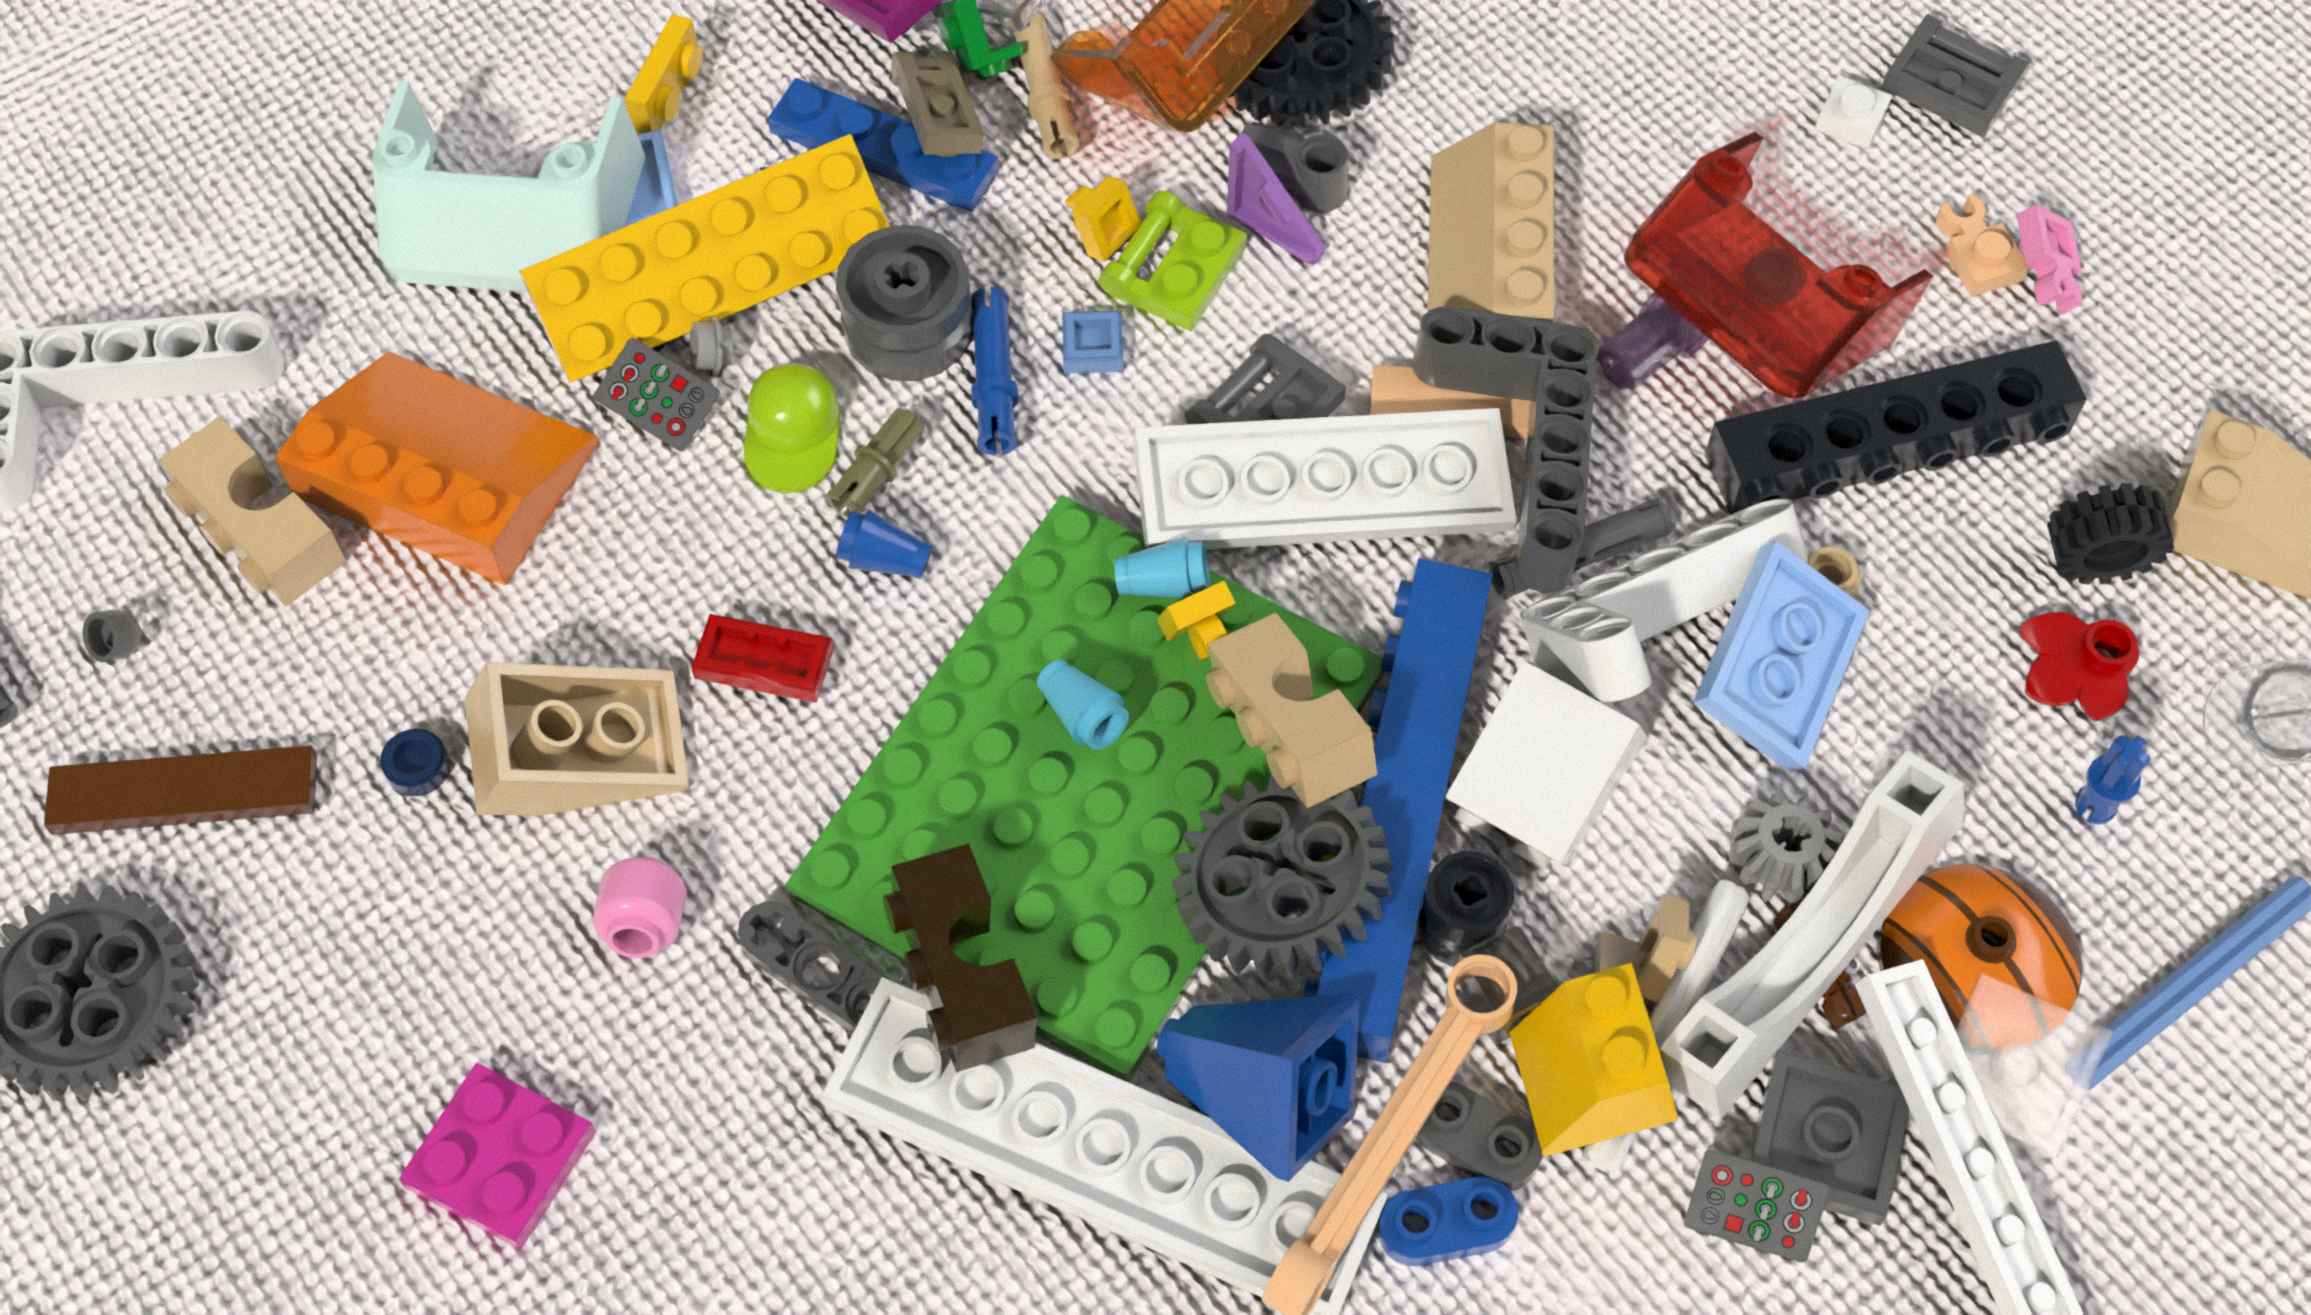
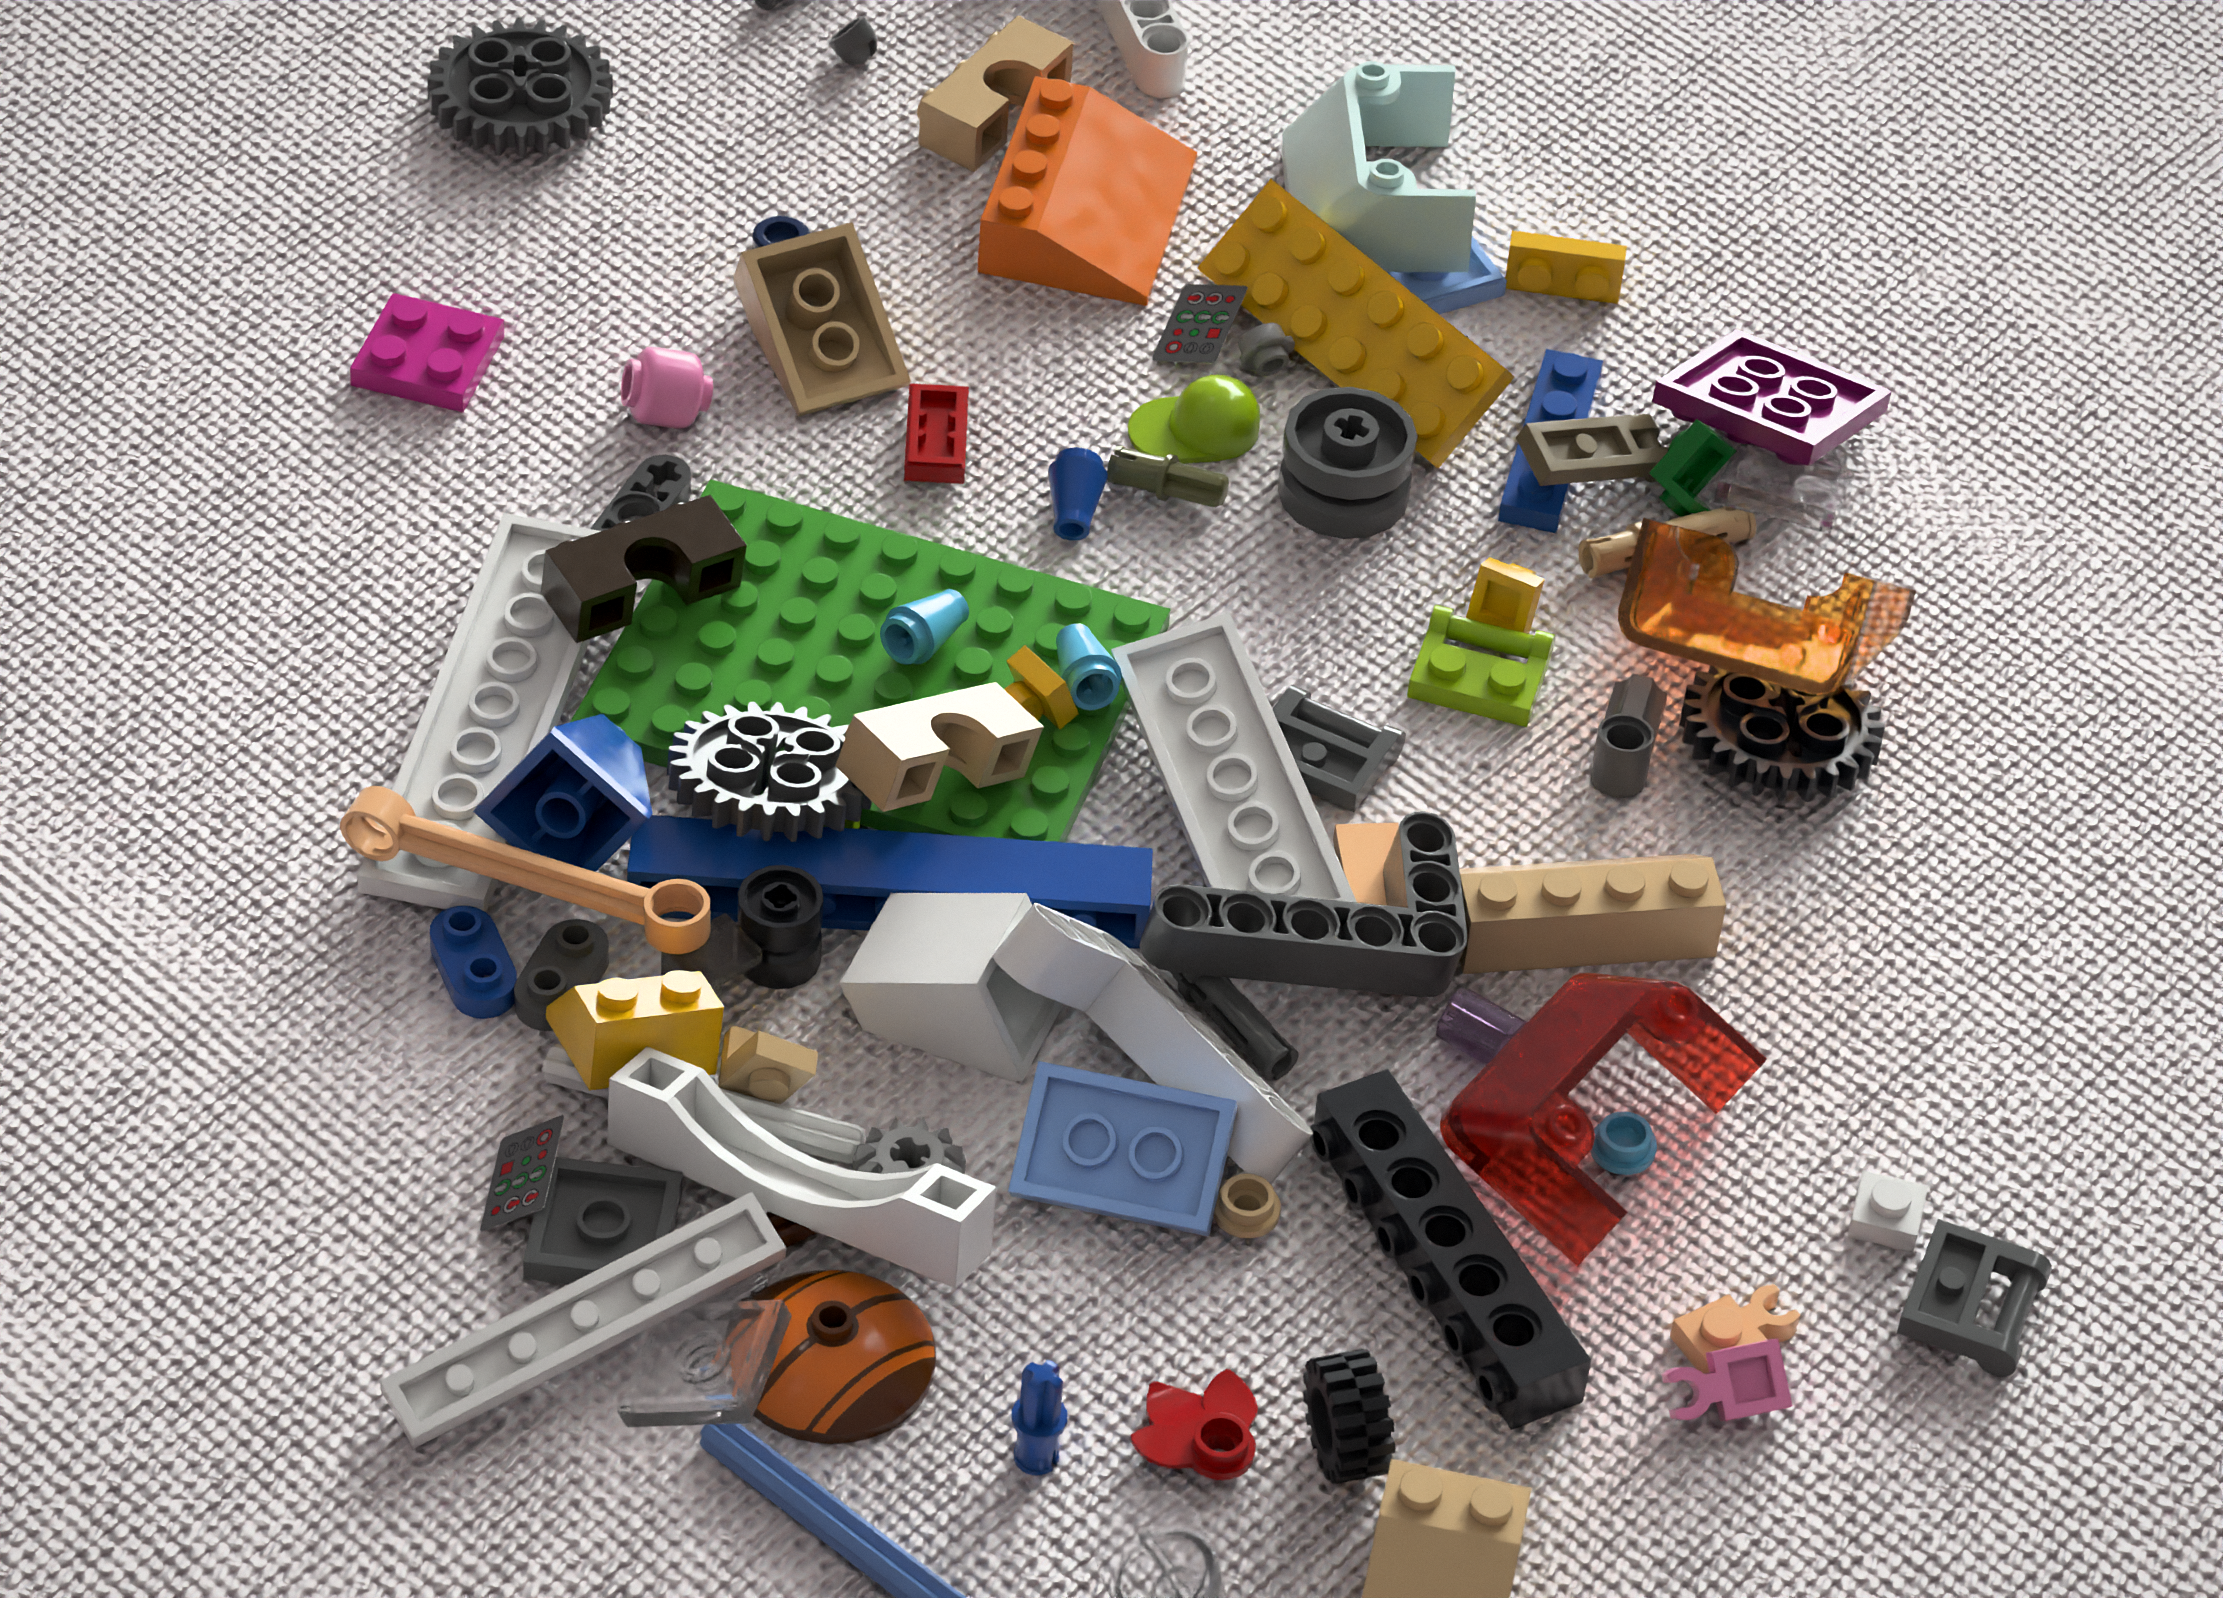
camera: 75 degrees right, 15 degrees down
(181, 790) = (721, 113): reddish brown tile -> none
(994, 390) = (1280, 547): blue pin -> none
(1092, 342) = (1363, 619): medium blue tile -> none
(1264, 204) = (1563, 709): medium lavender tile -> none

